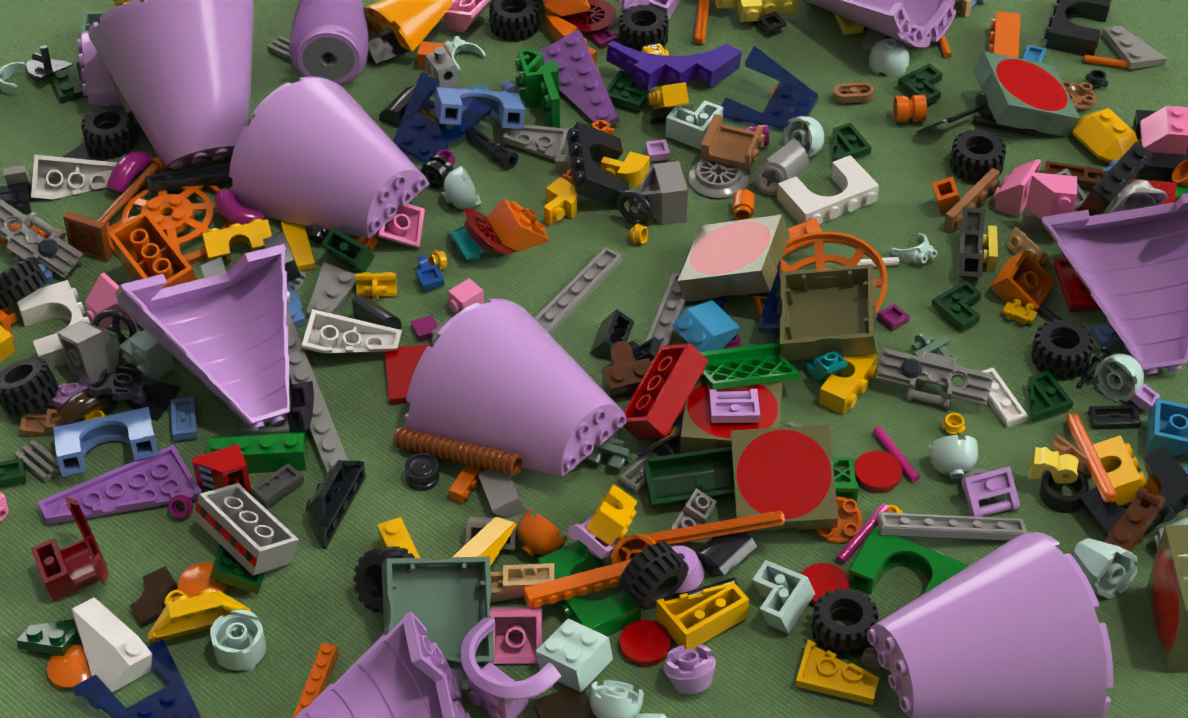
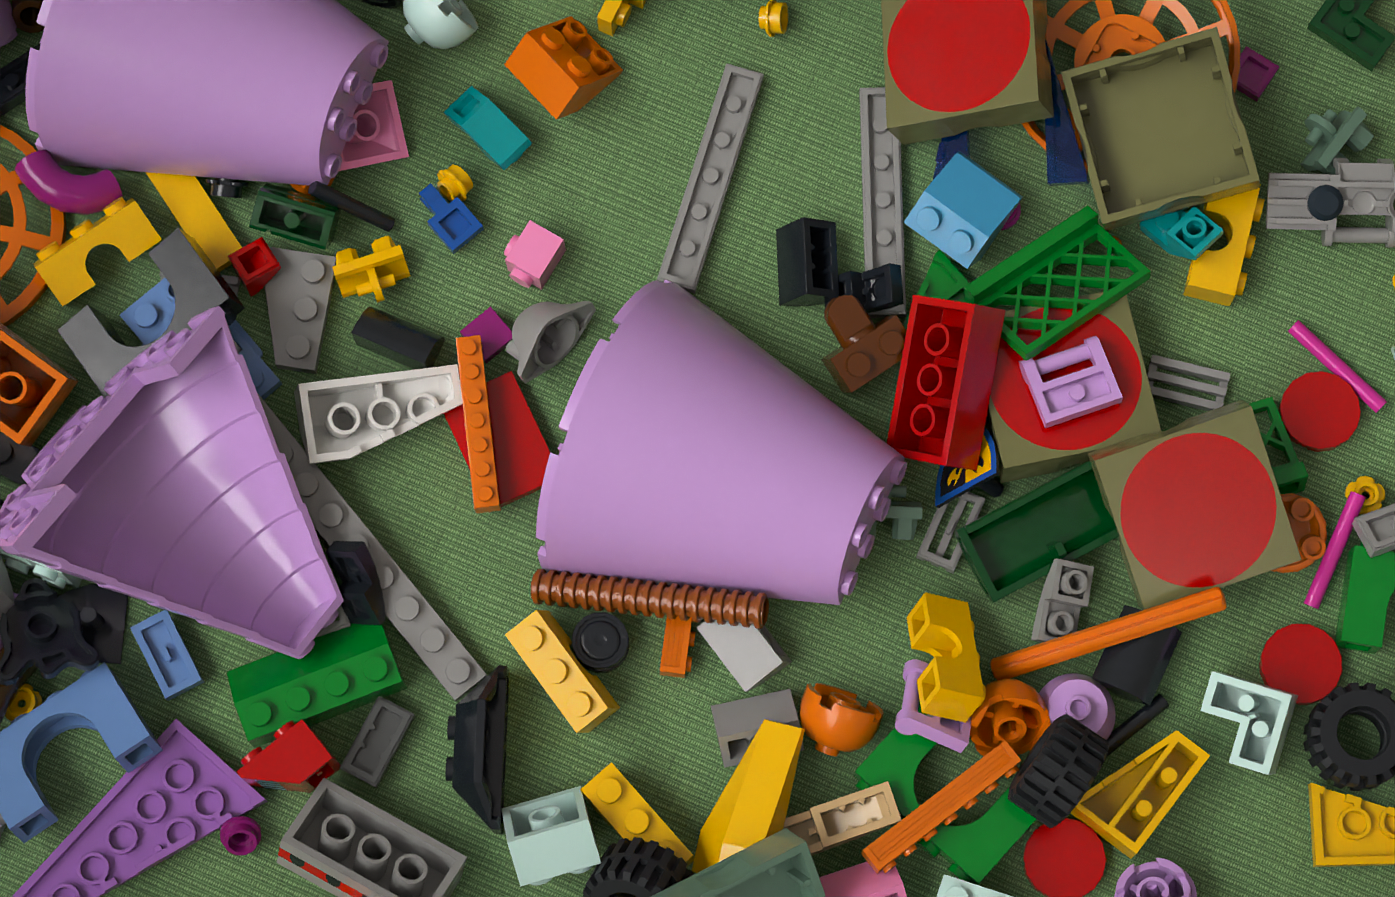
camera: 15 degrees left, 30 degrees up
(316, 268) = (254, 265): none -> red slope
(347, 541) = (550, 837): none -> light aqua brick
(378, 252) = (351, 206): none -> black piece
(393, 475) = (572, 688): none -> yellow arch
(400, 358) = (477, 424): none -> orange piece
(483, 233) = (516, 112): dark red piece -> none

